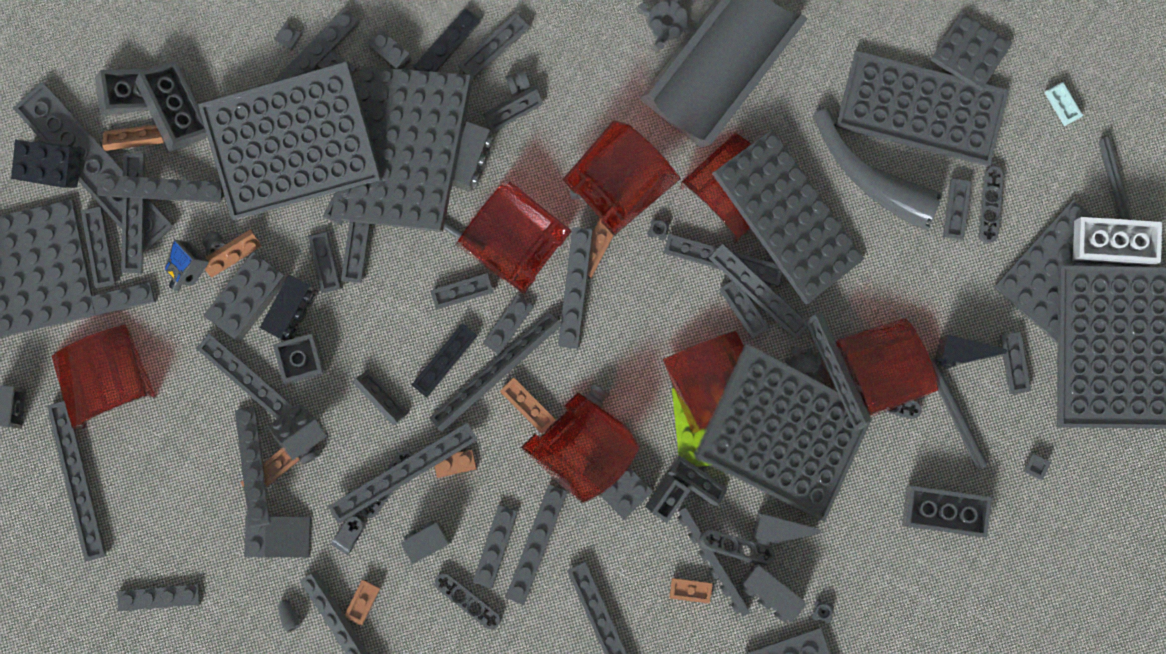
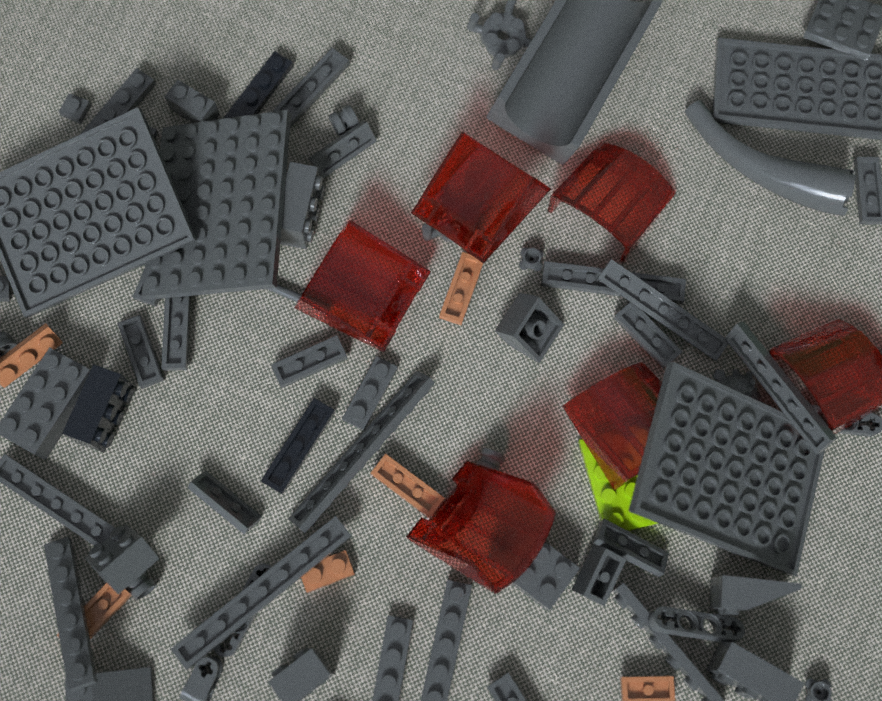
camera: 10 degrees left, 10 degrees down
(299, 359) = (118, 468): dark grey brick -> none
(575, 288) = (444, 337): dark grey plate -> none
(647, 288) = (529, 326): none -> dark grey slope
(788, 216) = (682, 220): dark grey plate -> none

